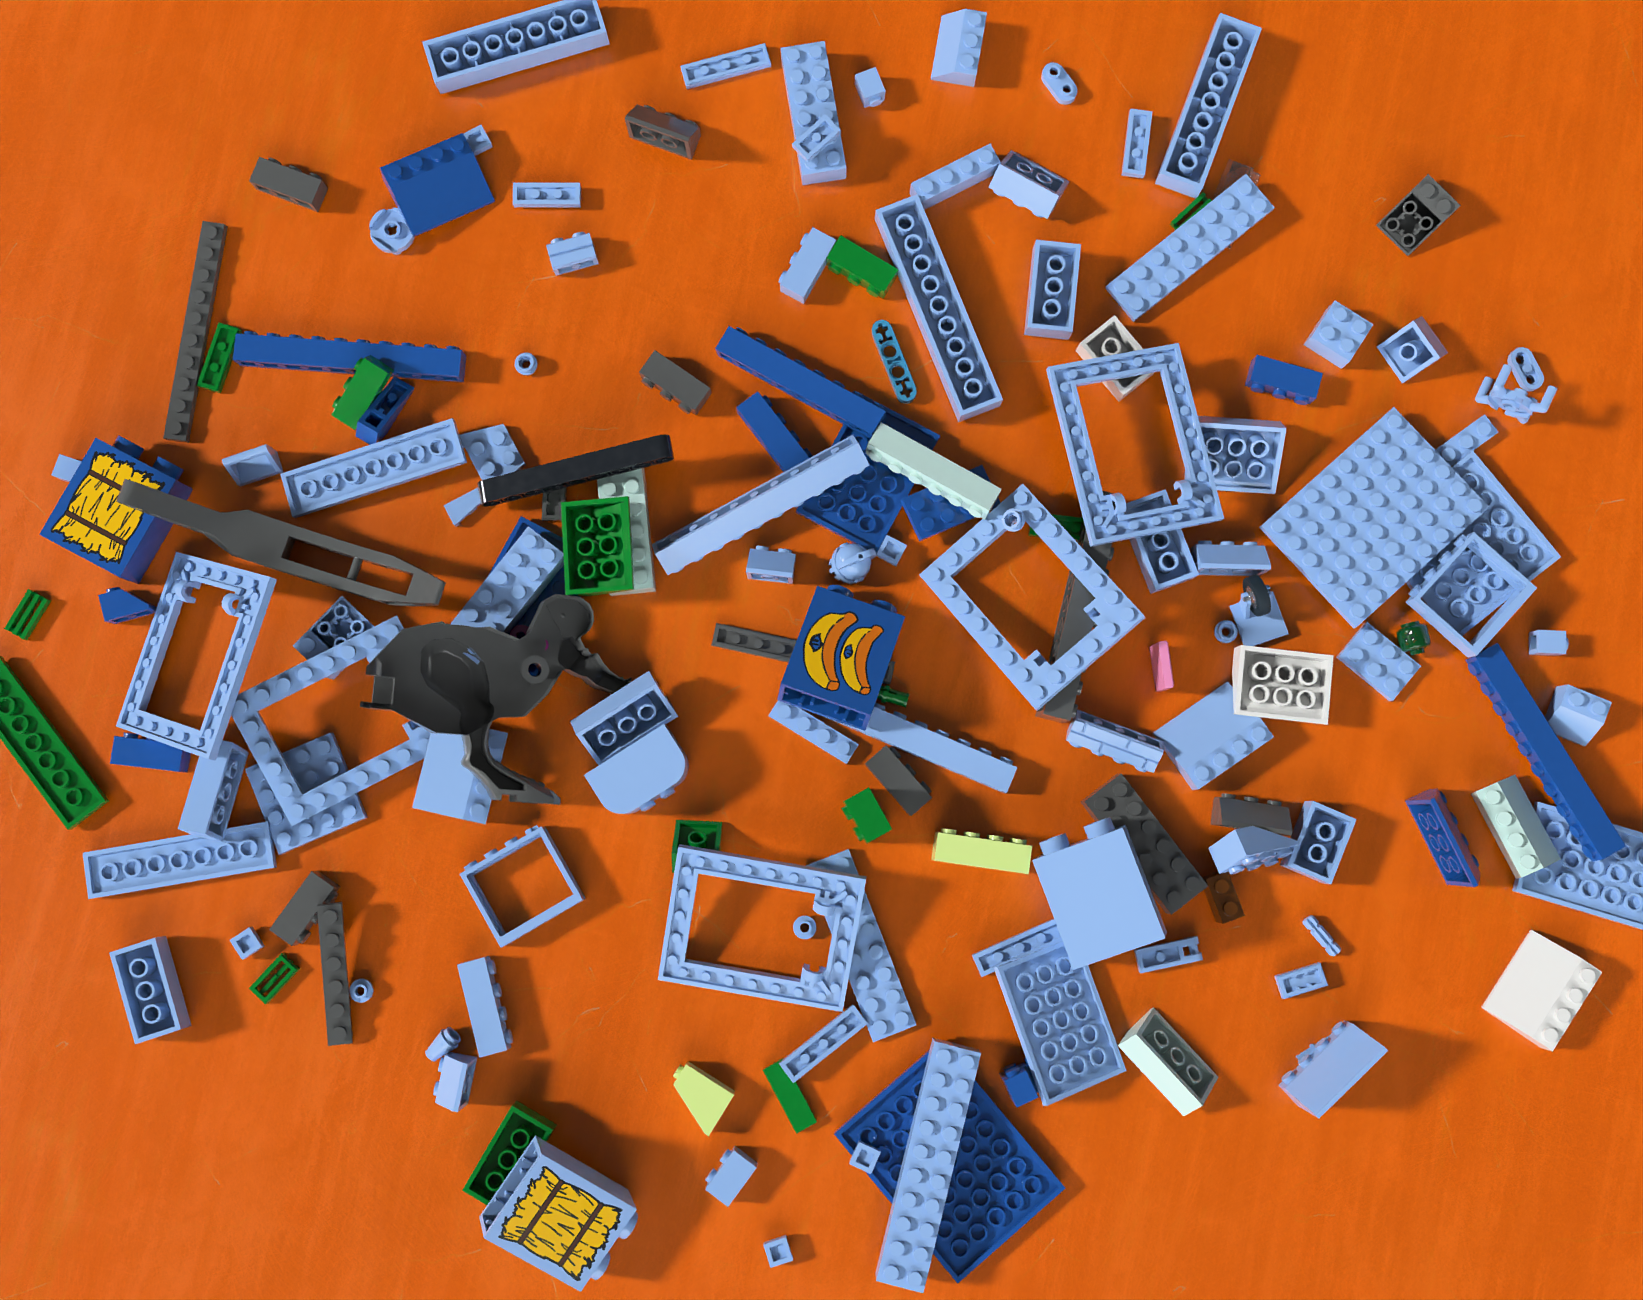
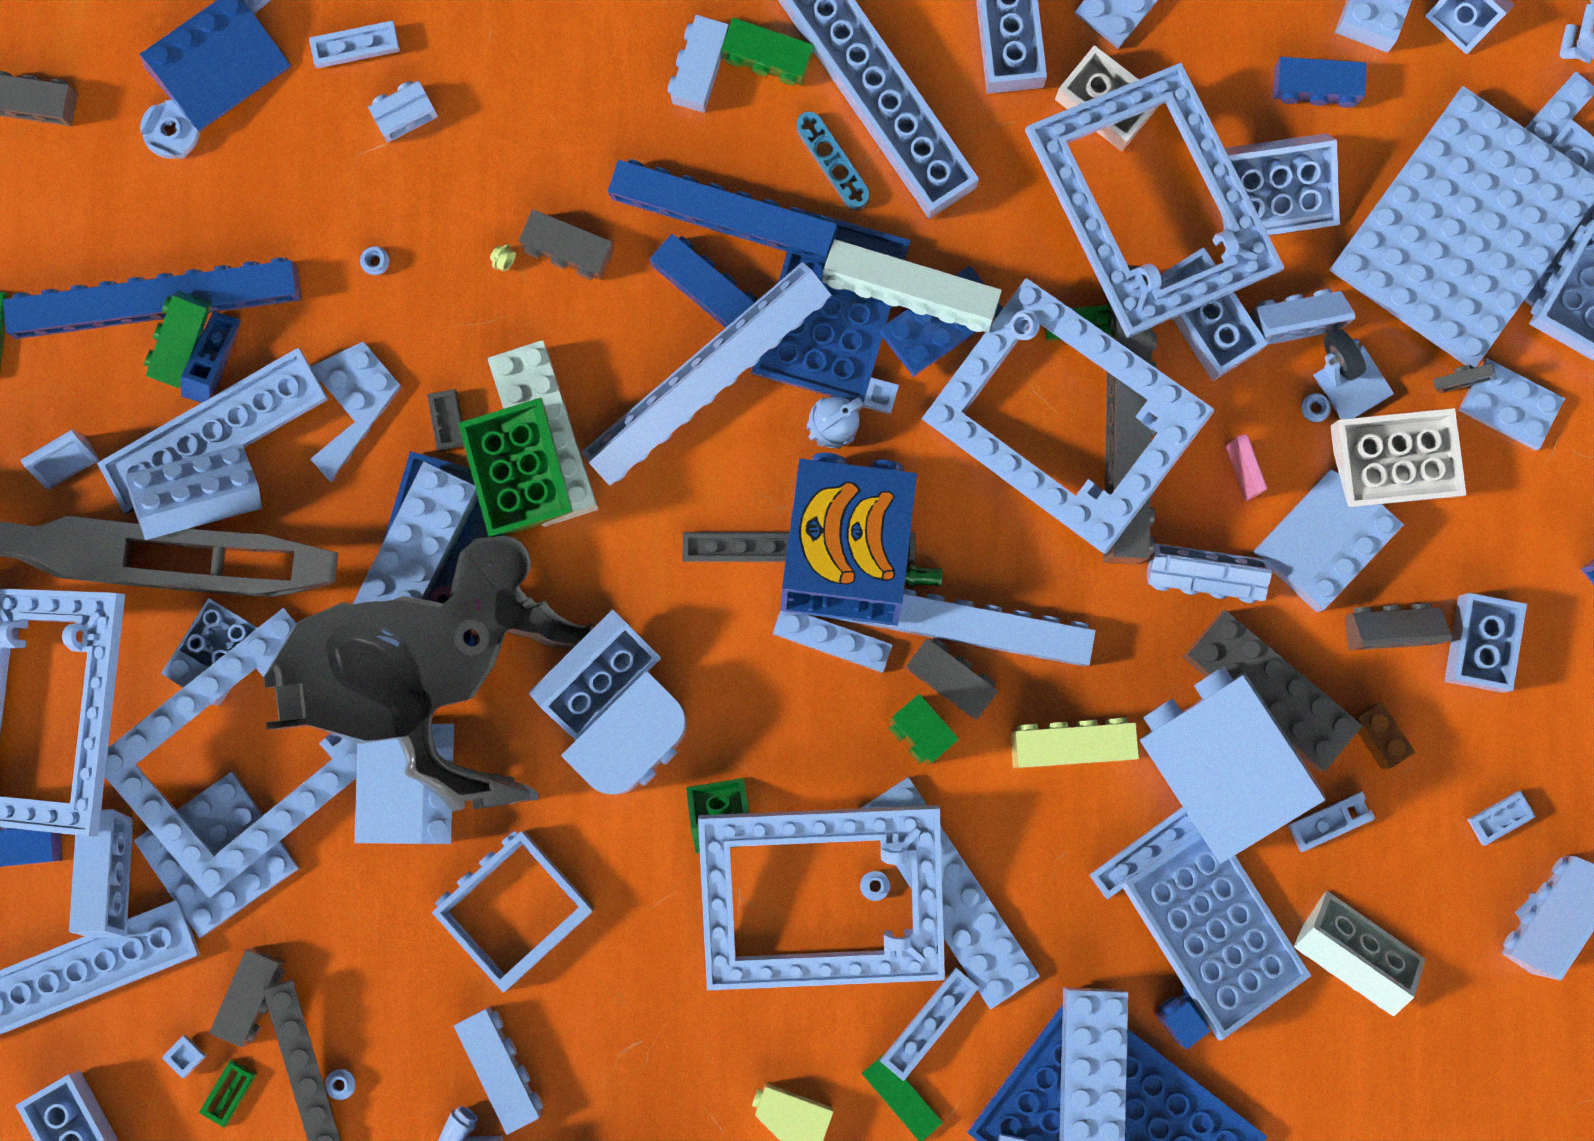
camera: 10 degrees left, 0 degrees up
(348, 511) = (193, 491): none -> light blue brick
(576, 470) = (467, 379): black beam -> none
(624, 382) = (503, 257): none -> yellowish green plate
(771, 565) = (735, 446): light blue slope -> none
(1250, 849) = (1404, 669): light blue slope -> none
(1321, 935) = (1515, 757): light blue axle -> none
(1346, 632) = (1464, 377): none -> dark grey plate
(1413, 637) = (1548, 365): dark green head -> none

